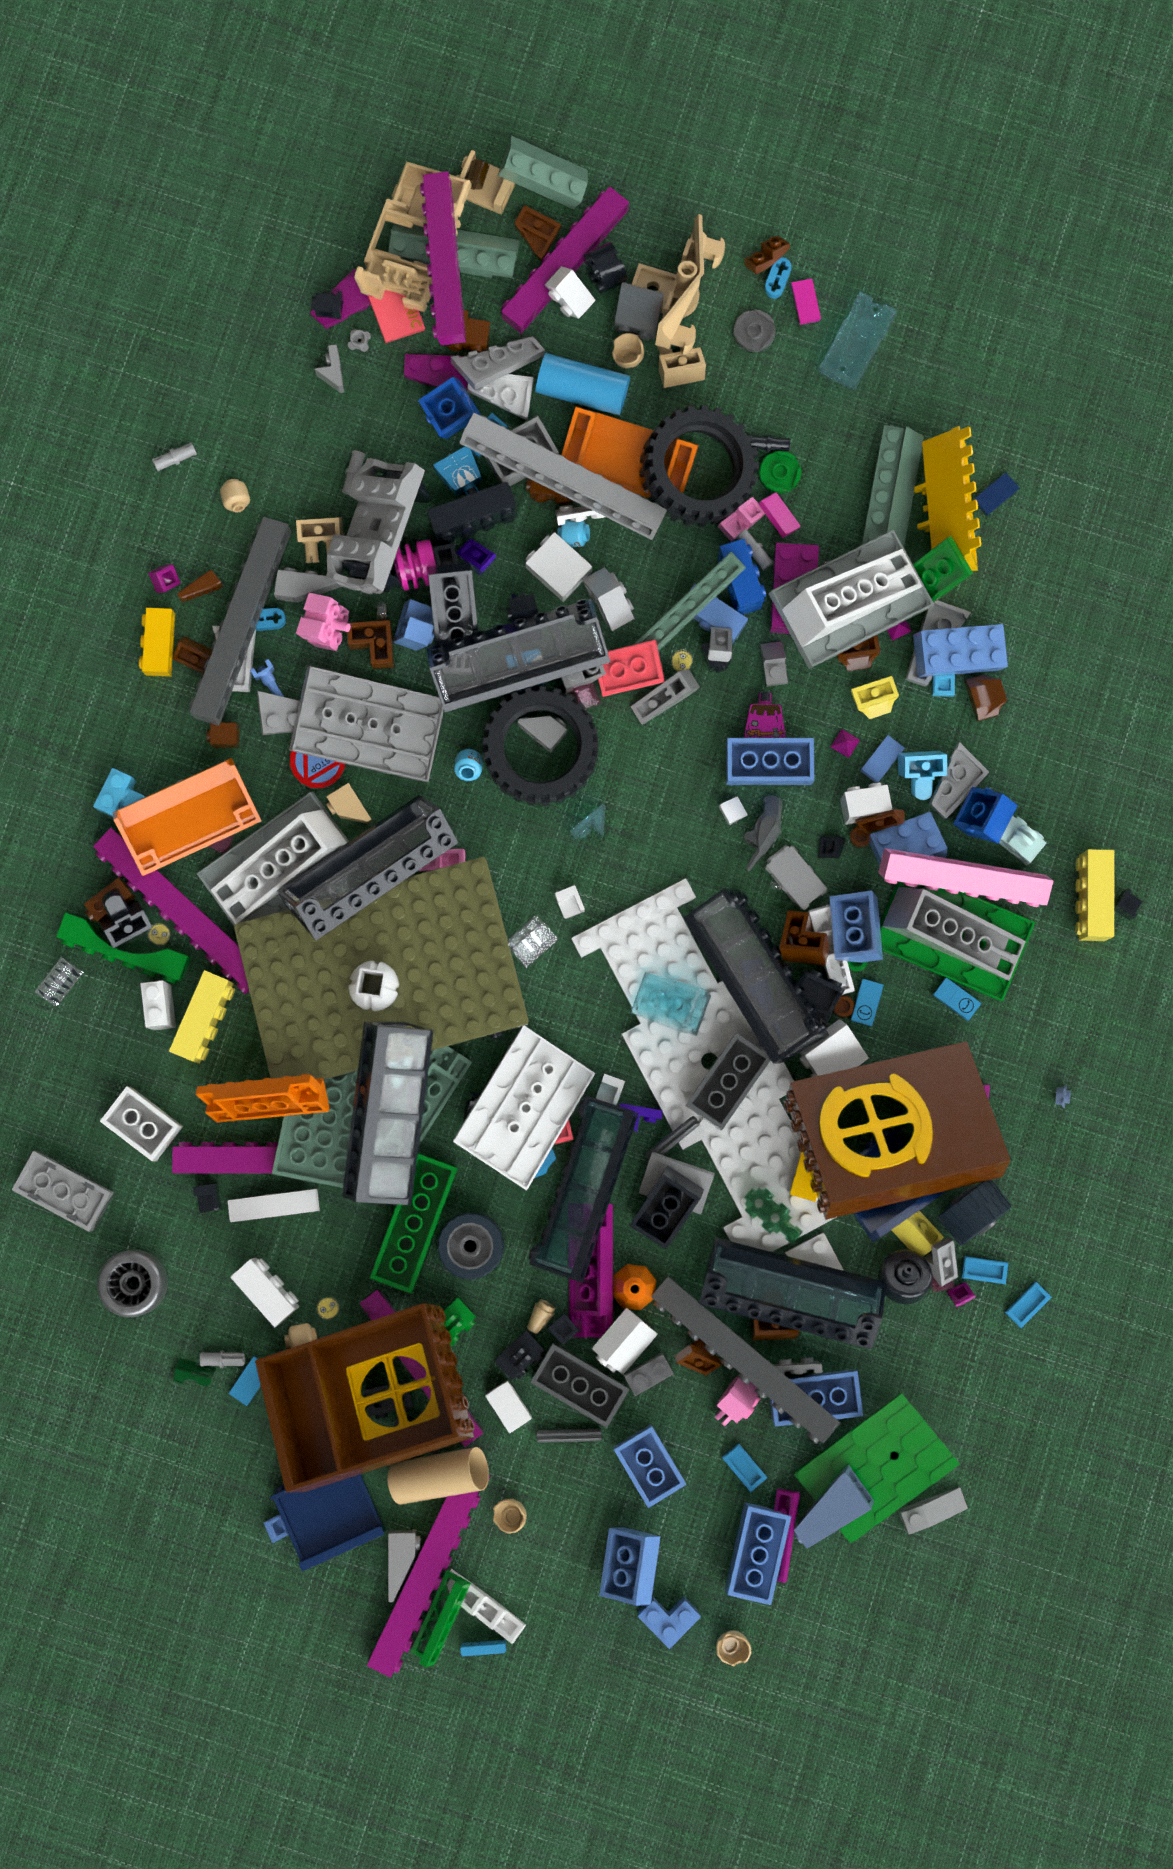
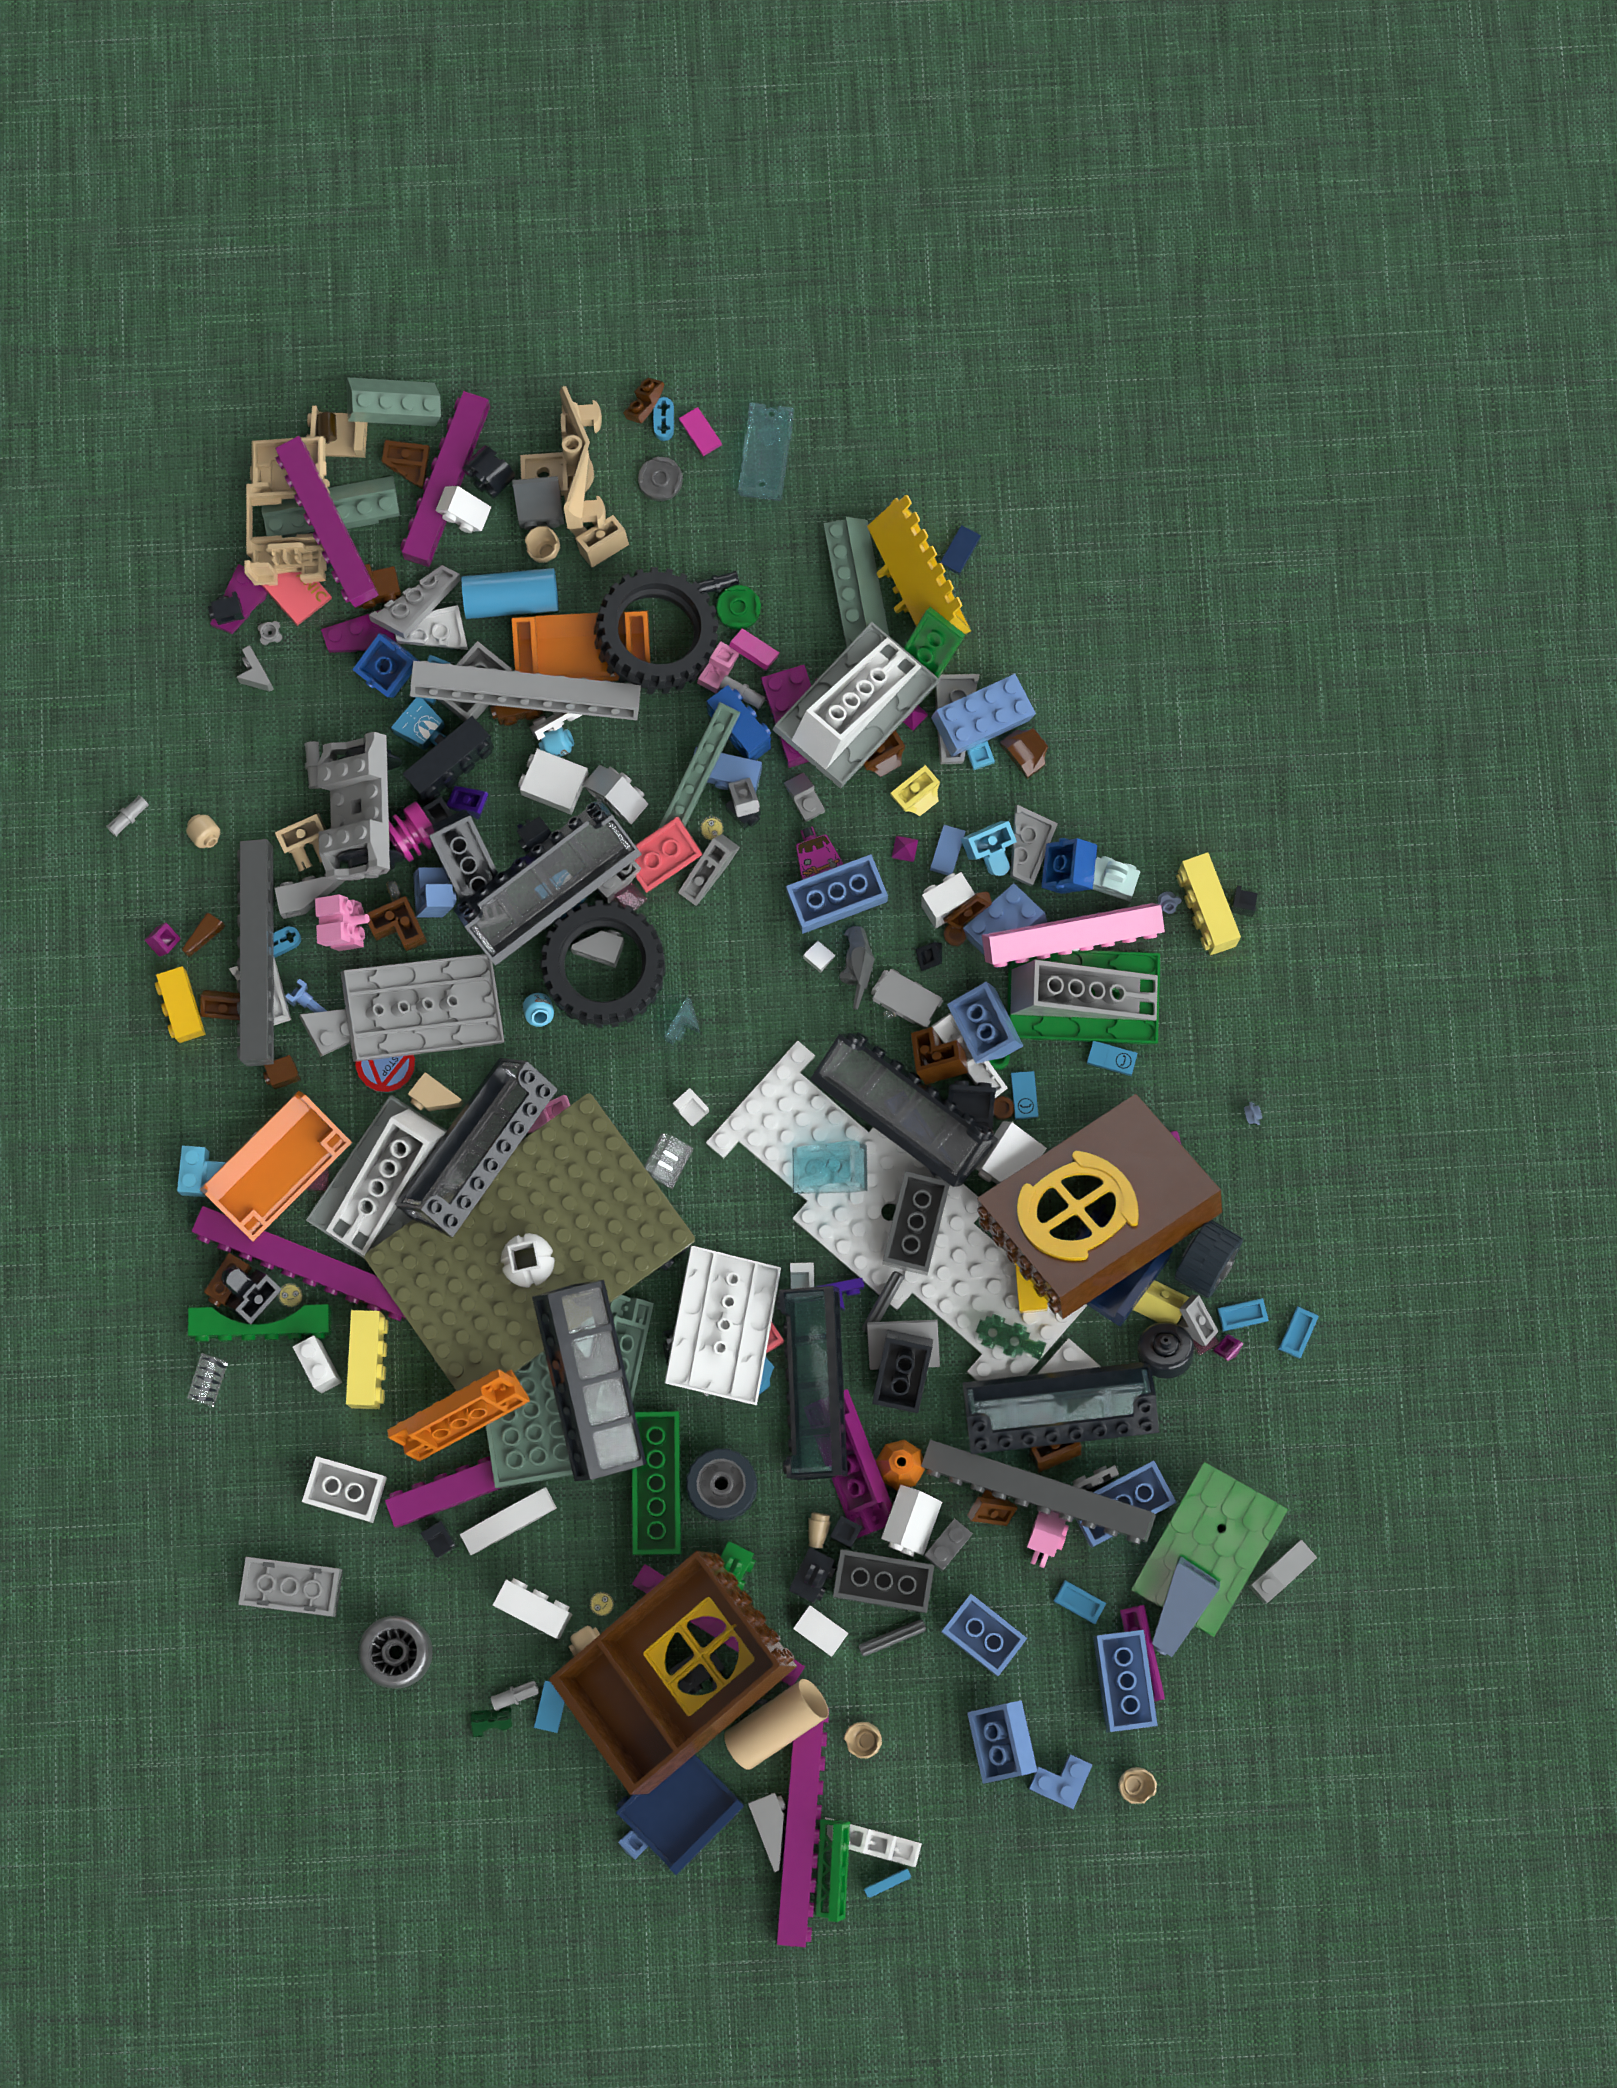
camera: 15 degrees left, 5 degrees down
(1060, 879) = (1168, 902): none -> sand blue plate

